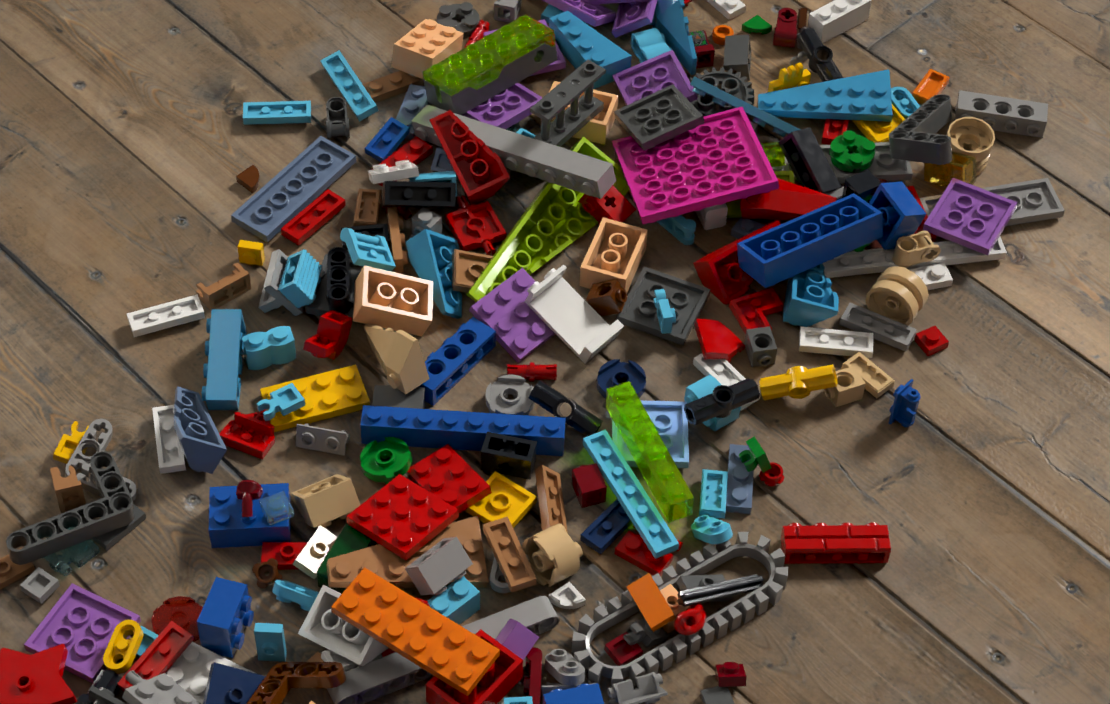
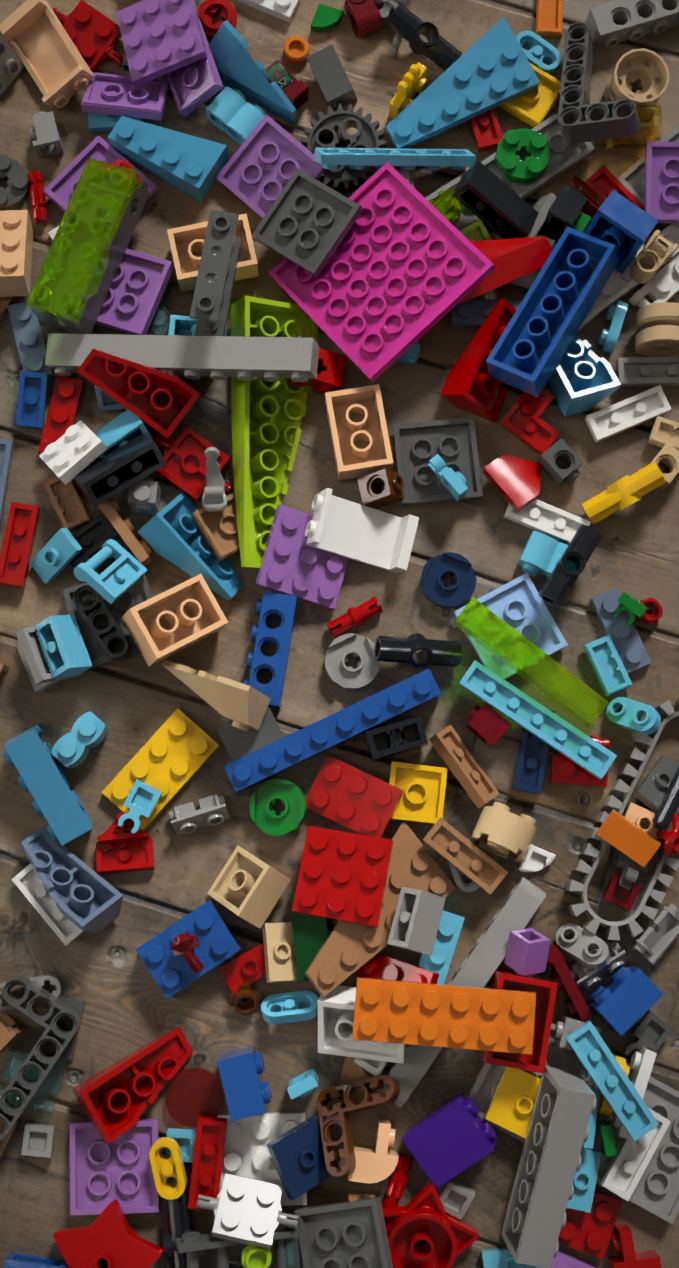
camera: 30 degrees left, 30 degrees up
(135, 579) = (126, 1088): none -> red wedge
(276, 508) = (220, 942): clear light blue plate -> none
(330, 233) = (55, 555): none -> medium azure plate
(330, 336) = (133, 694): red brick -> none
(480, 243) = (214, 494): none -> light grey piece
(859, 284) = (616, 317): none -> medium azure plate

